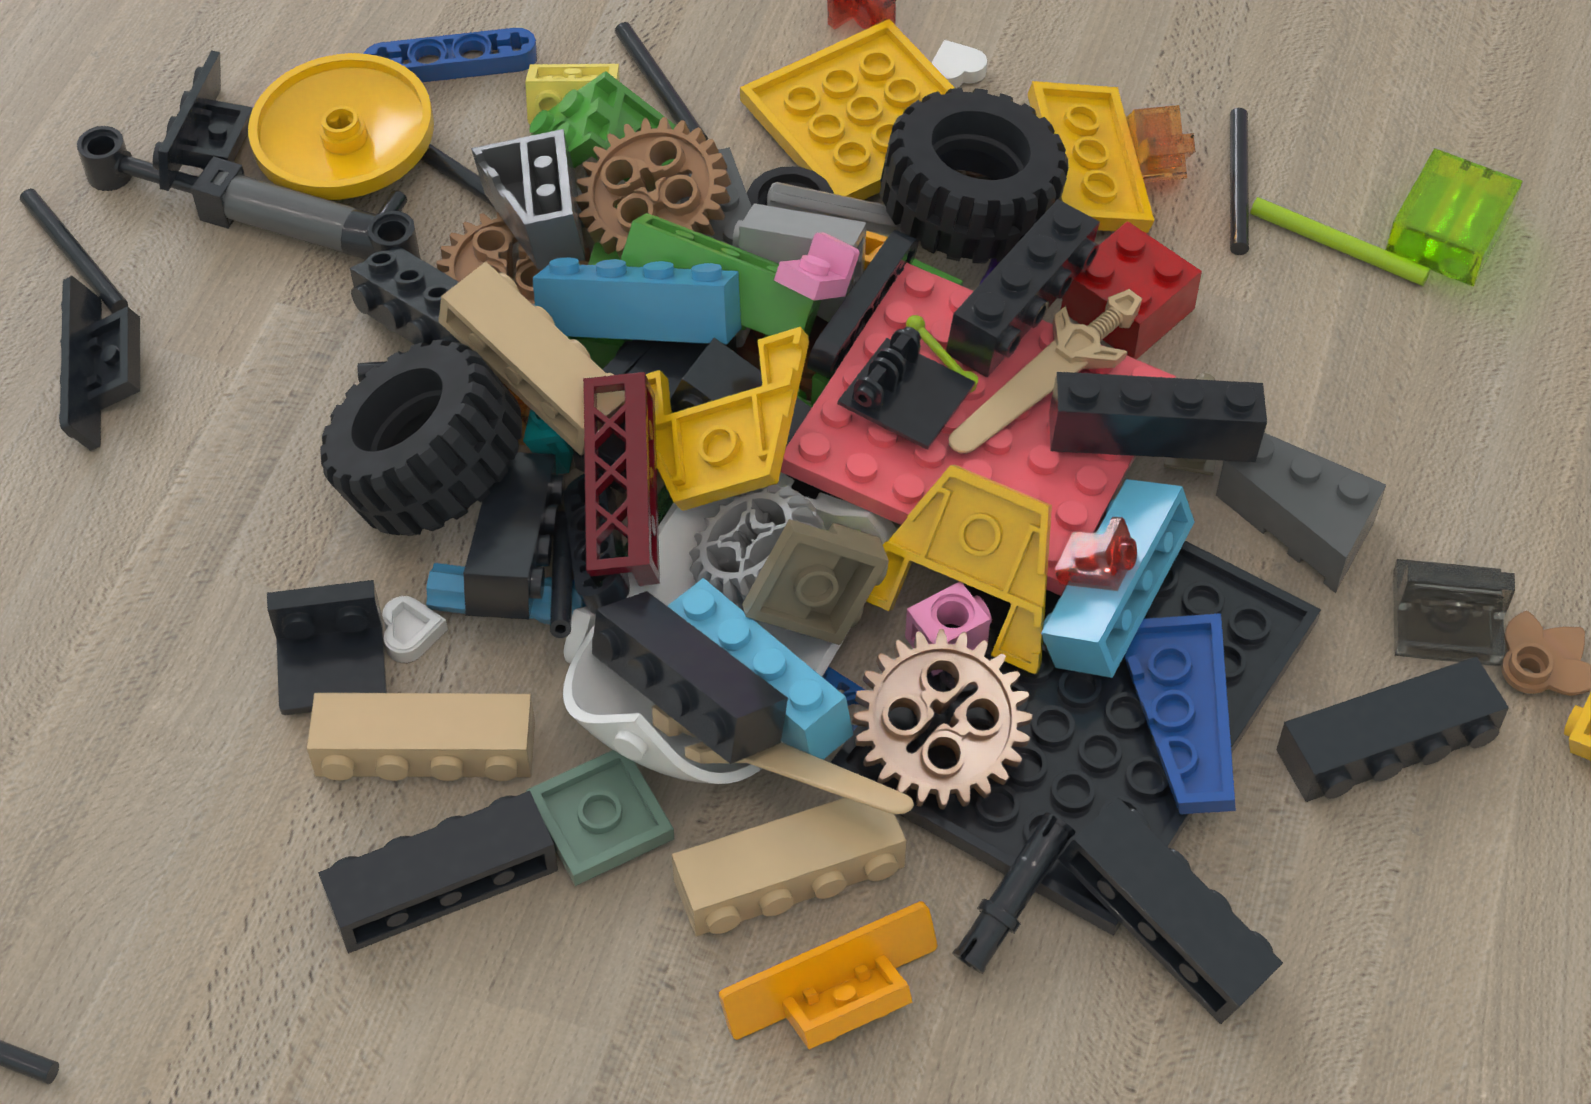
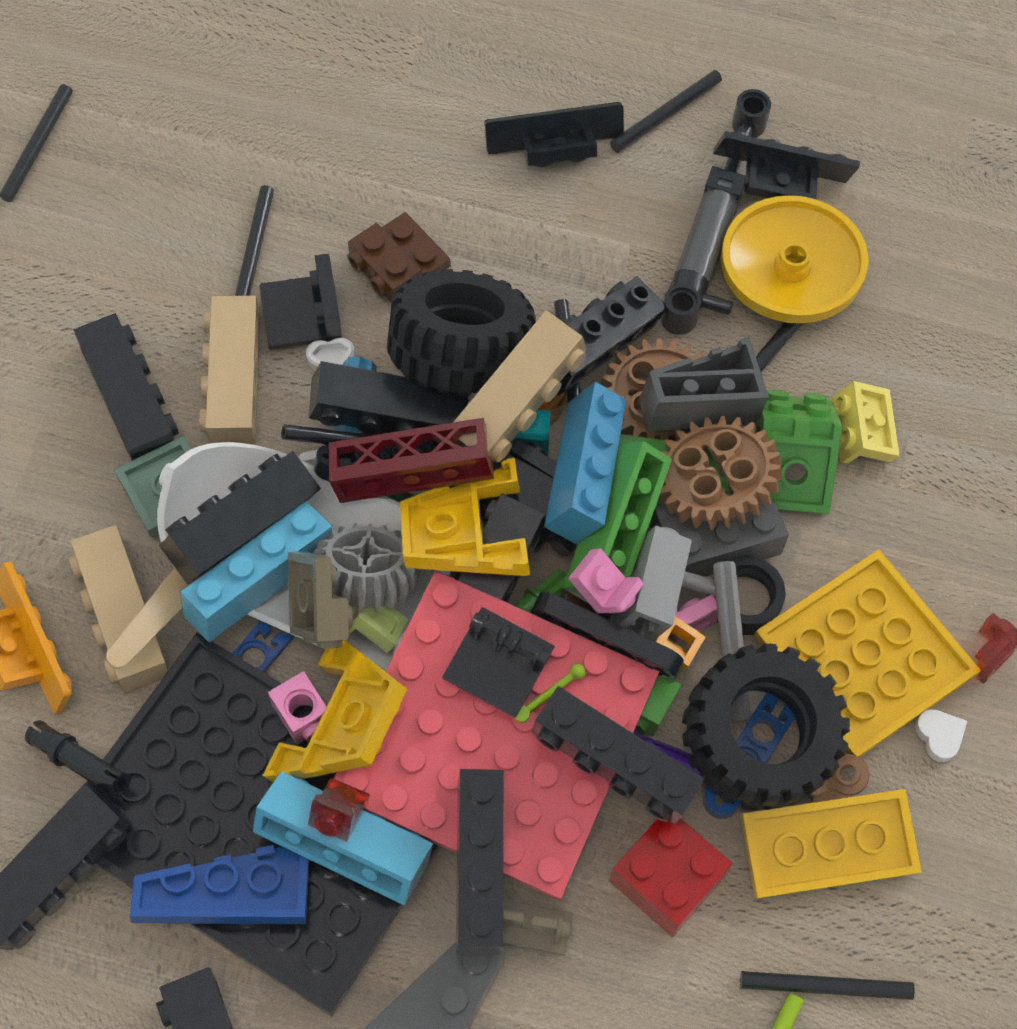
camera: 85 degrees right, 10 degrees up
(207, 724) = (254, 241): none -> black bar
(259, 547) = (395, 254): none -> reddish brown plate
(452, 47) = (899, 333): blue beam -> none
(655, 76) = (886, 492): black piece -> none
(976, 751) = (185, 729): gear -> none
(1073, 349) = (558, 797): tan sword -> none
(1160, 143) = (849, 904): clear orange brick -> none

